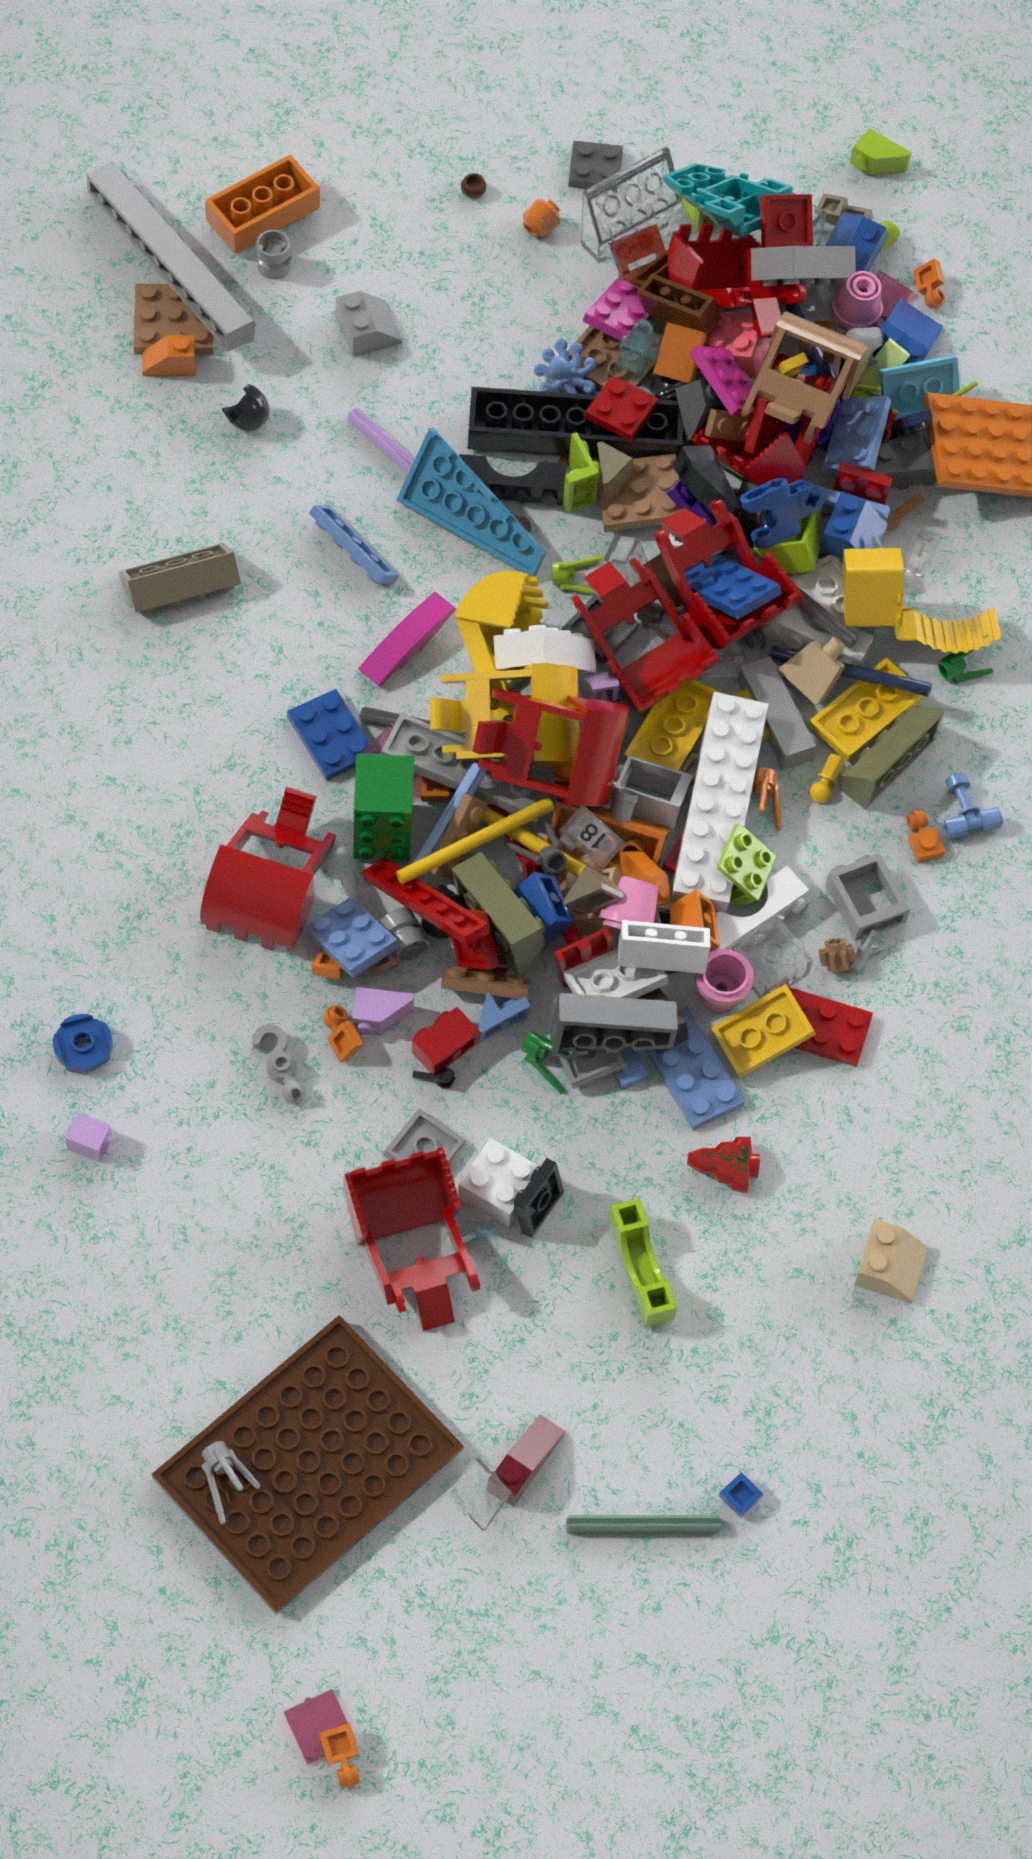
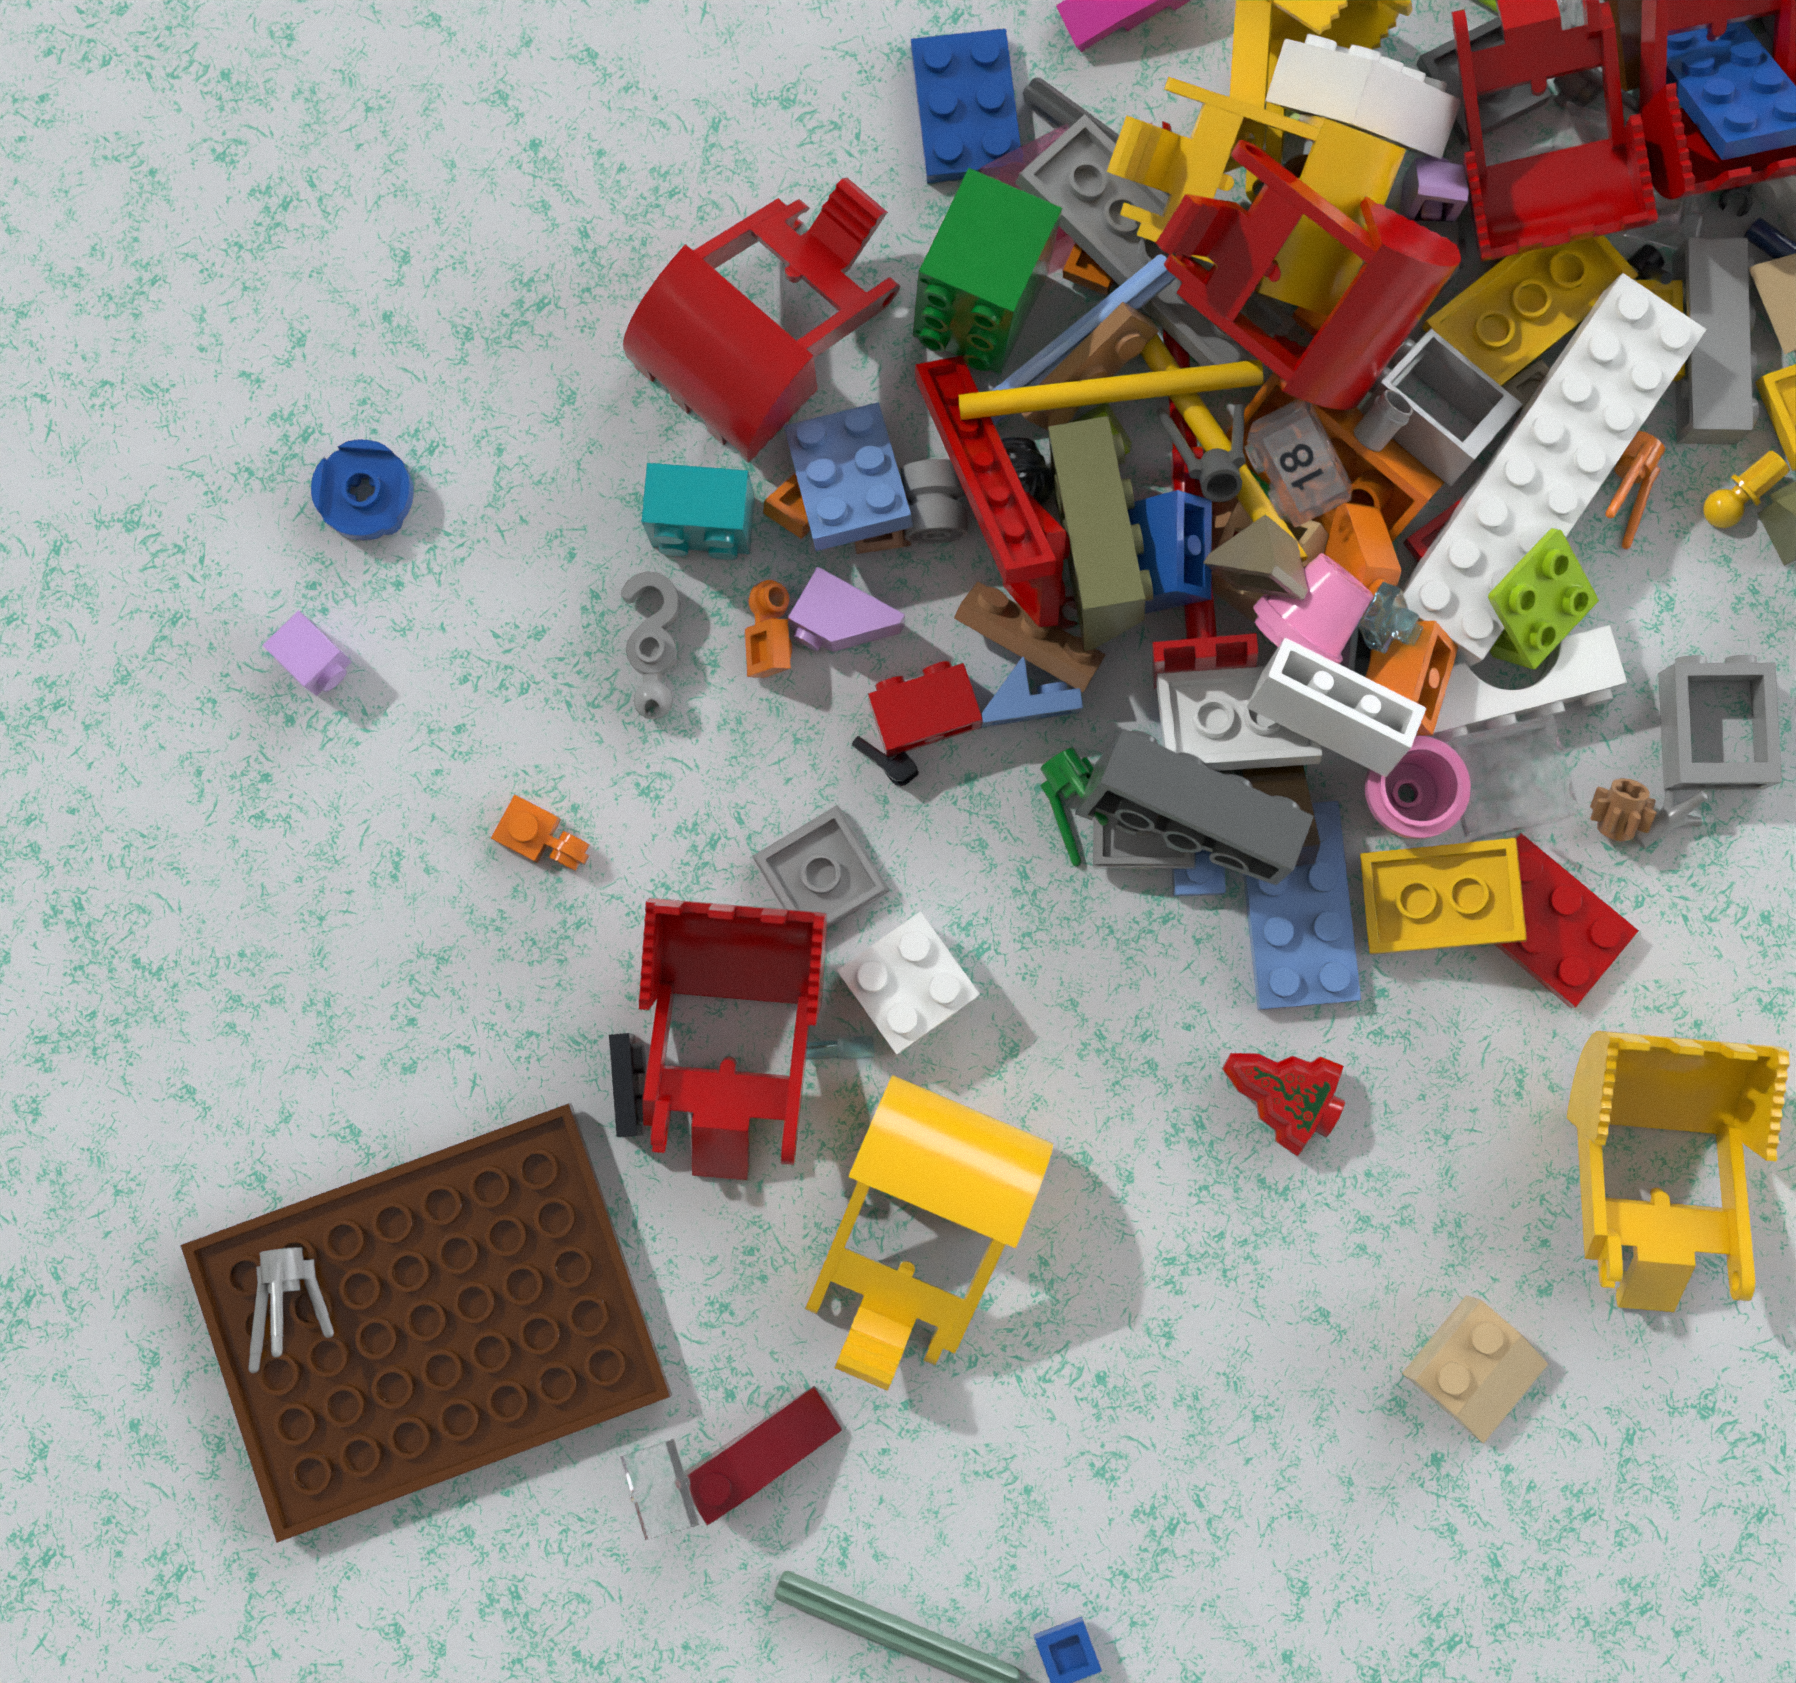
camera: 30 degrees right, 20 degrees up
(253, 1184) = (531, 829): none -> orange plate
(279, 981) = (698, 510): none -> teal brick
(362, 1283) = (627, 1062): none -> black plate
(538, 1197) = (942, 1050): black plate -> none
(564, 1253) = (954, 1167): none -> yellow piece
(635, 1247) = (1074, 1215): lime arch -> none
(672, 897) = (1389, 619): none -> clear light blue tile
(727, 686) = (1649, 264): none -> black hand
(927, 1077) = (1679, 1087): none -> yellow piece

